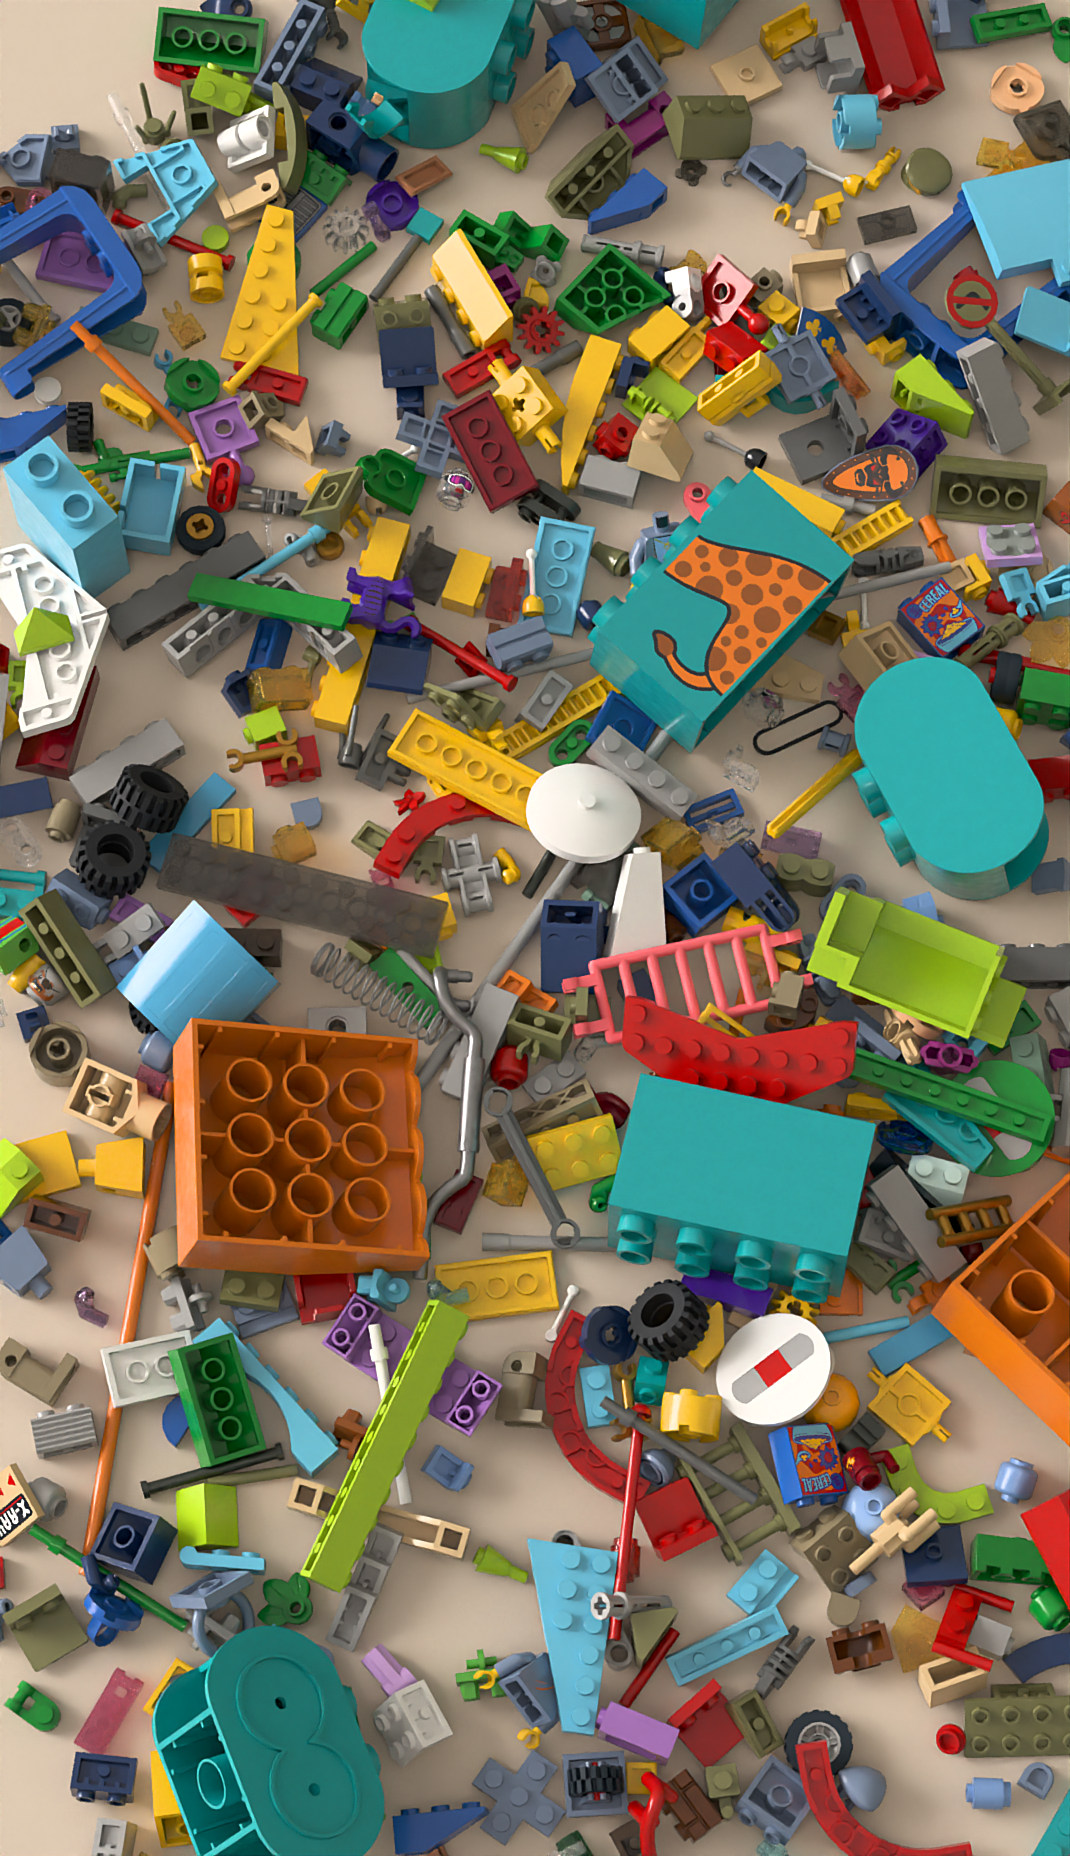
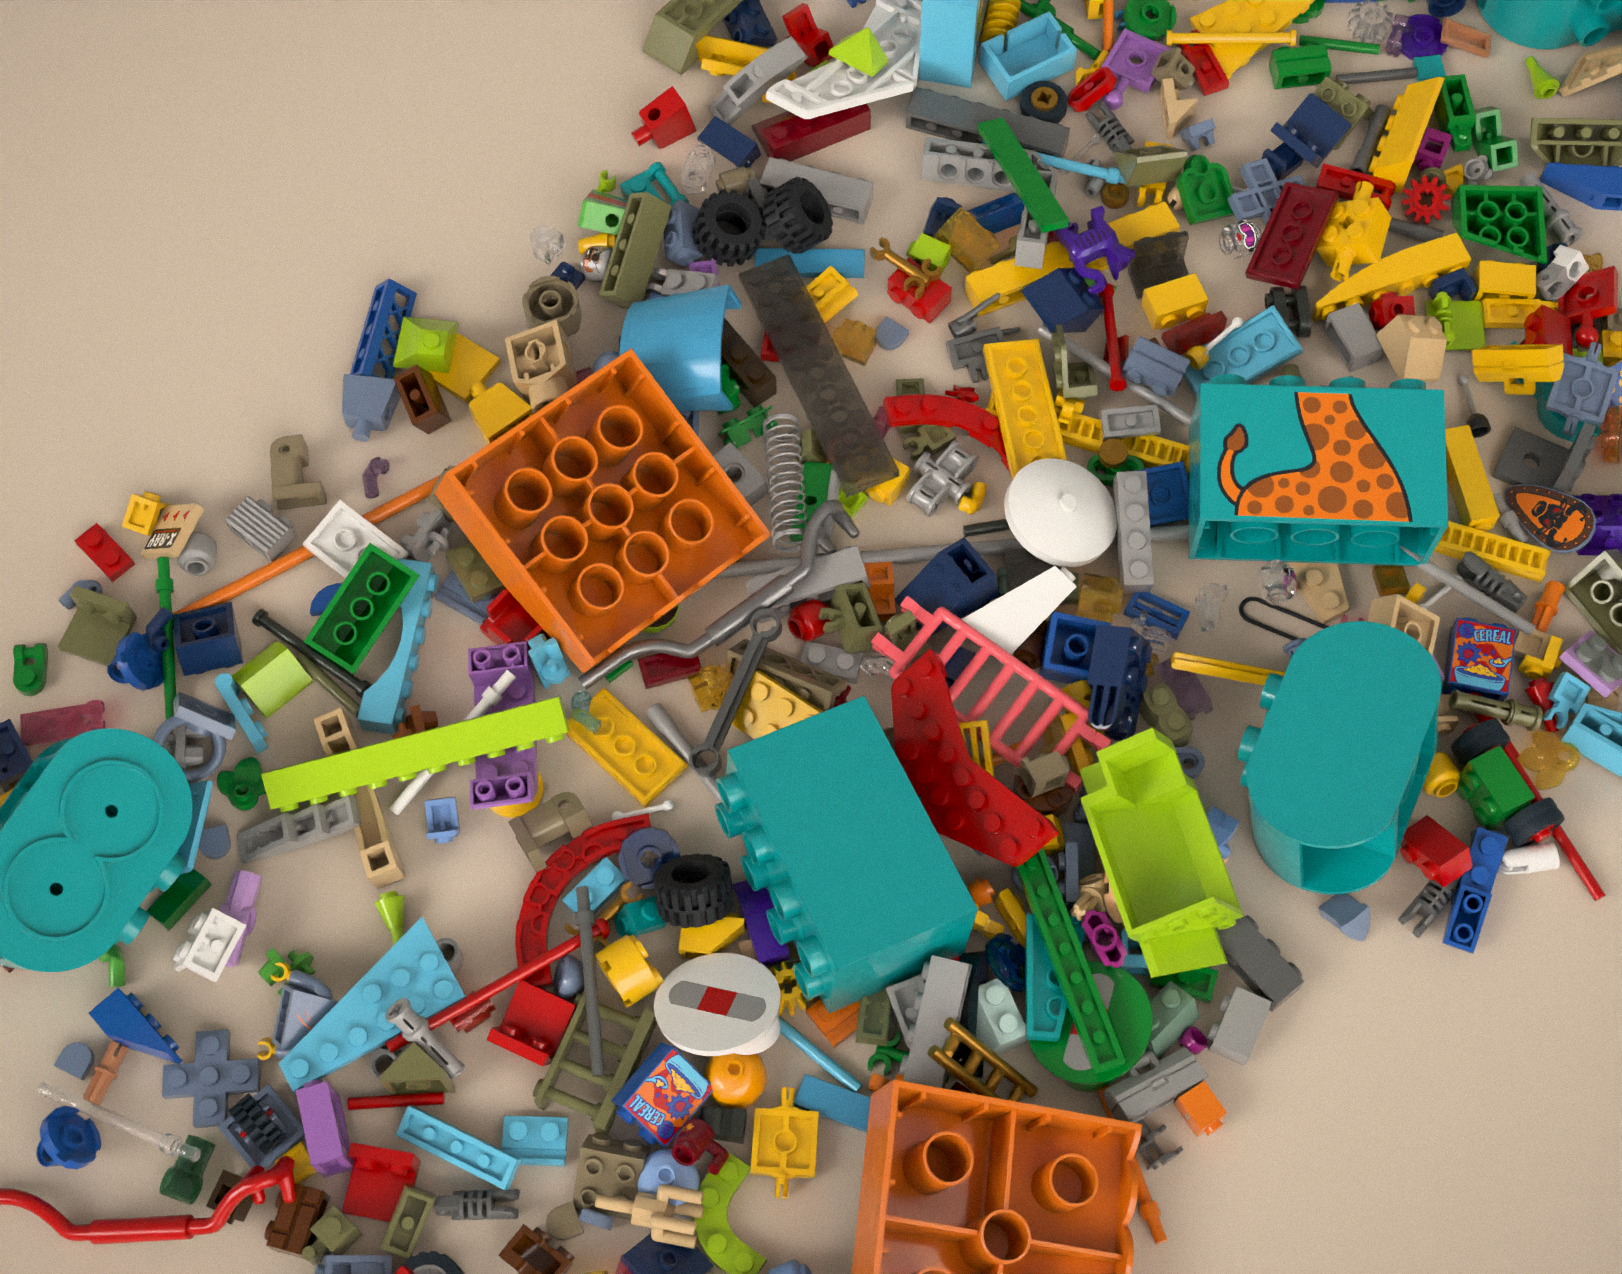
camera: 55 degrees right, 5 degrees down
(293, 995) = (737, 431): none -> green hinge
(560, 735) = (1113, 453): none -> pearl gold tile

